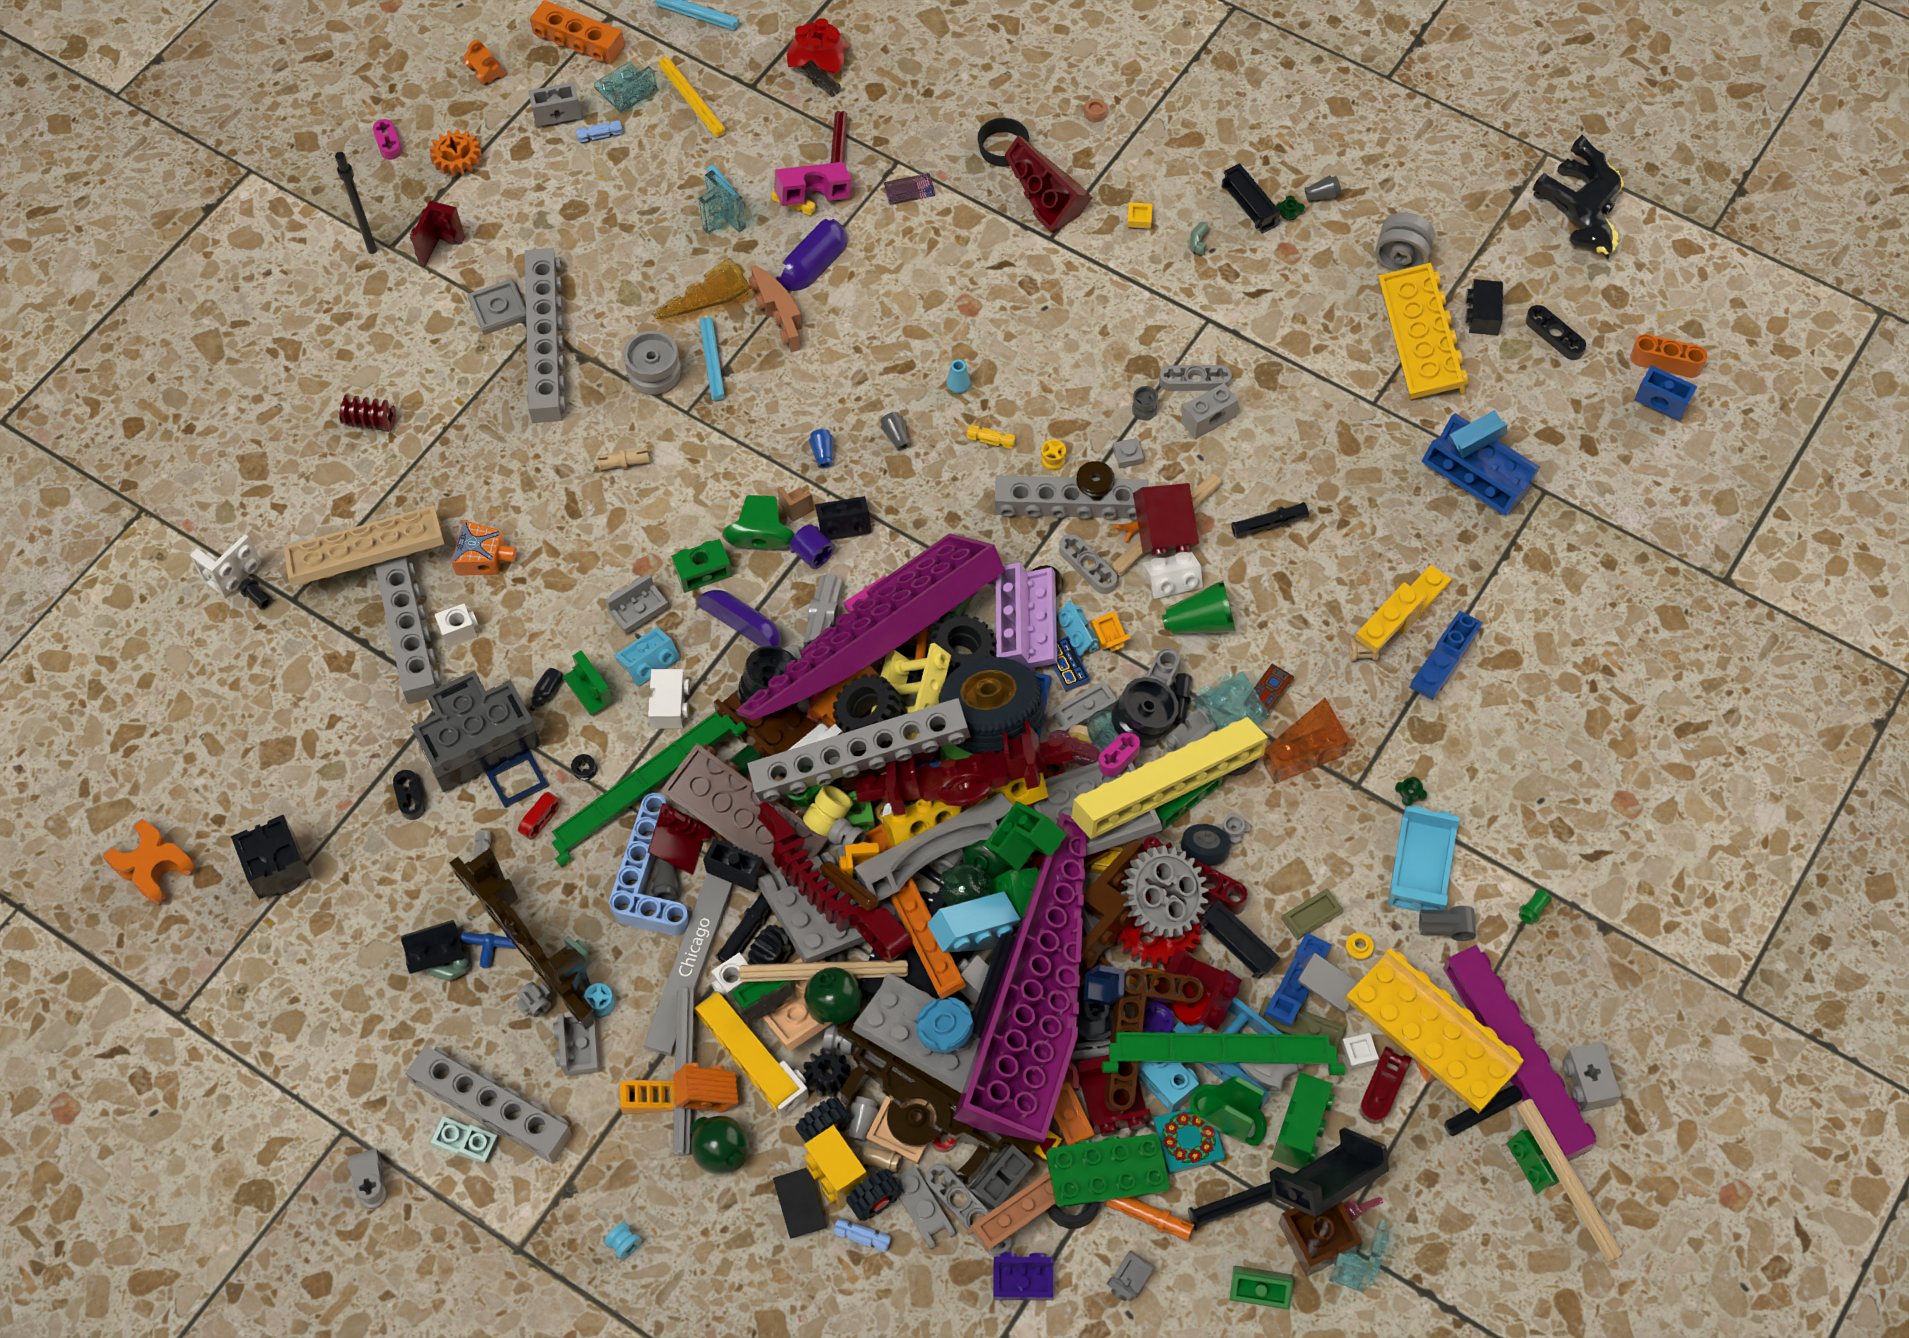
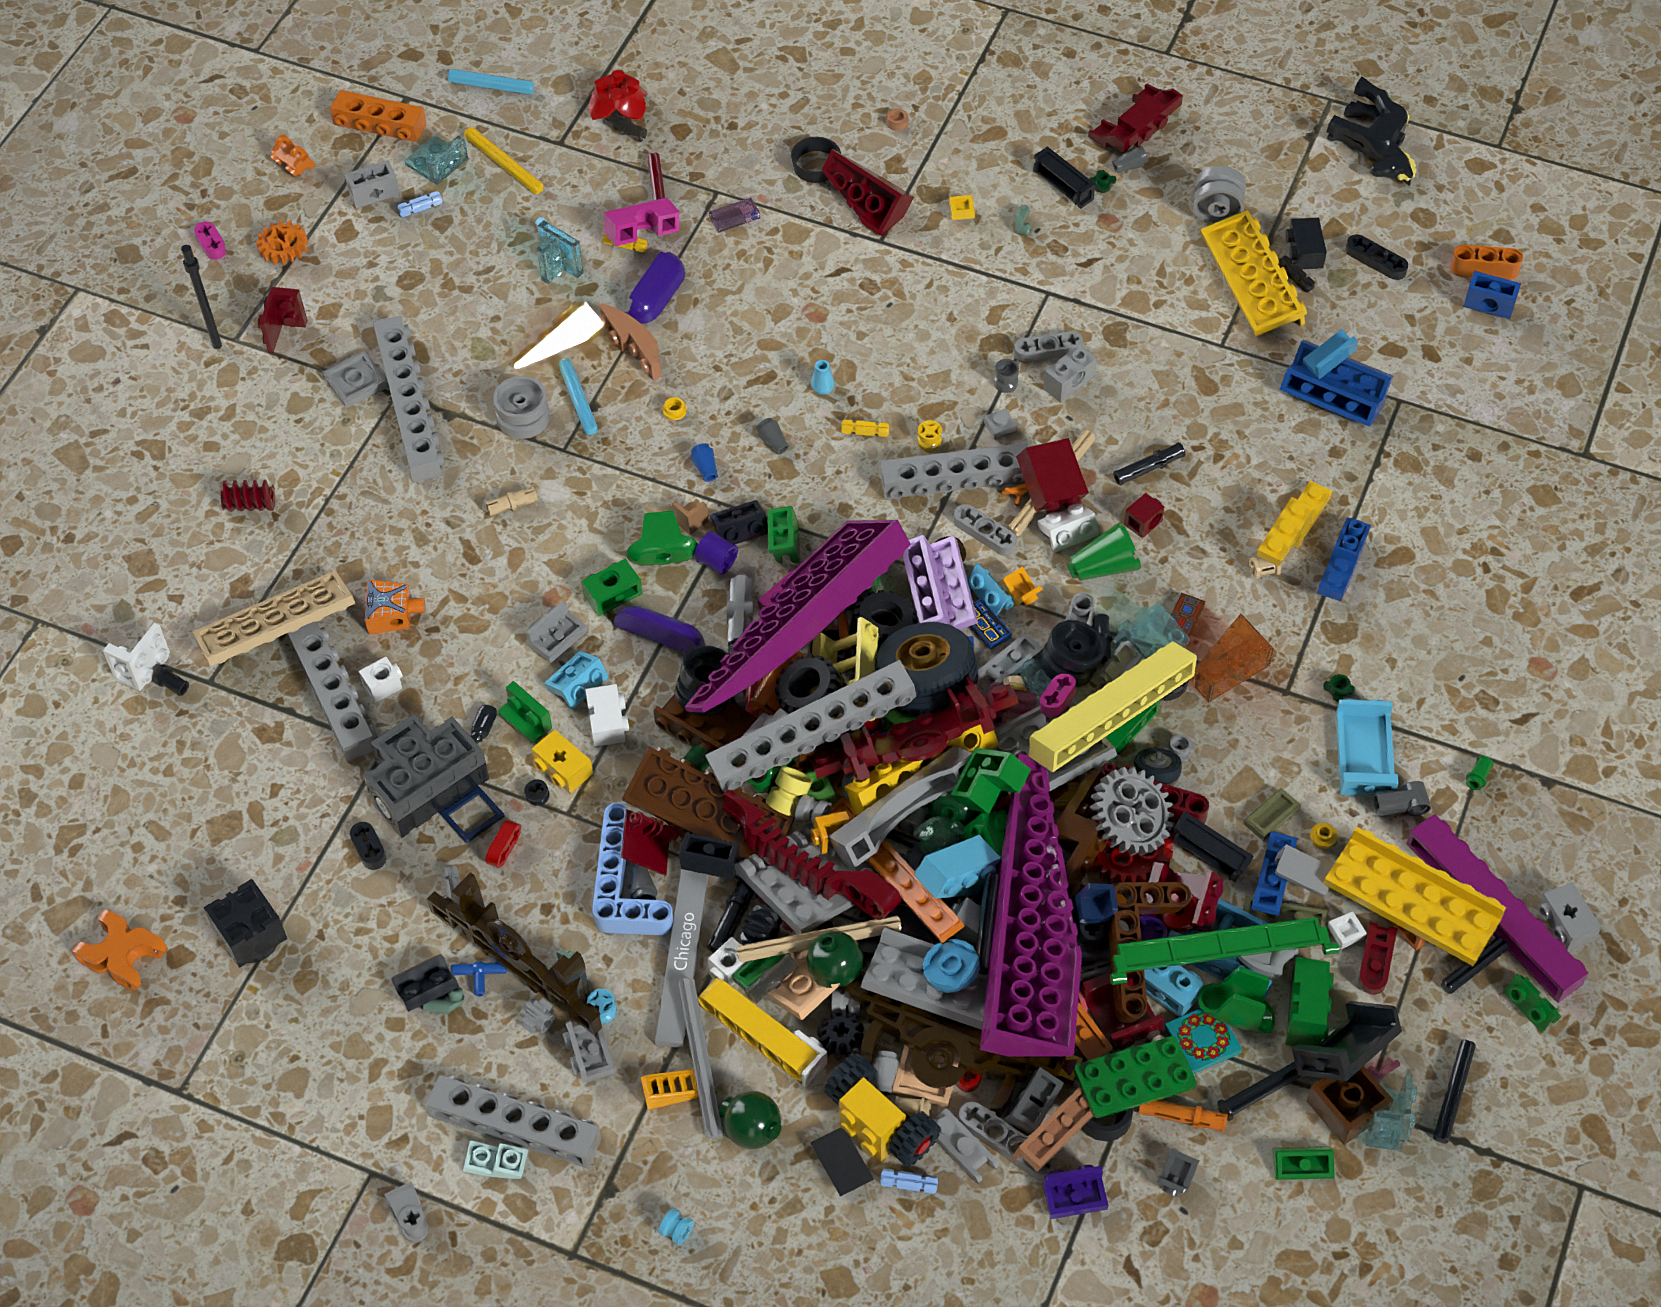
camera: 10 degrees left, 5 degrees down
(624, 748) = (561, 761): none -> yellow brick
(639, 783) = (595, 798): green piece -> none
(705, 1088) = (726, 1068): orange brick -> none
(804, 381) = (674, 409): none -> yellow plate
(849, 885) = (825, 853): reddish brown axle -> none
(883, 537) = (783, 533): none -> green hinge
(1095, 488) = (973, 457): dark brown piece -> none
(1252, 574) = (1144, 515): none -> dark red brick
(1343, 148) = (1140, 121): none -> dark red bracket
(1431, 1240) = (1454, 1091): none -> black axle
(1467, 338) = (1297, 274): none -> black axle
(1569, 1180) = (1571, 1013): tan axle -> none

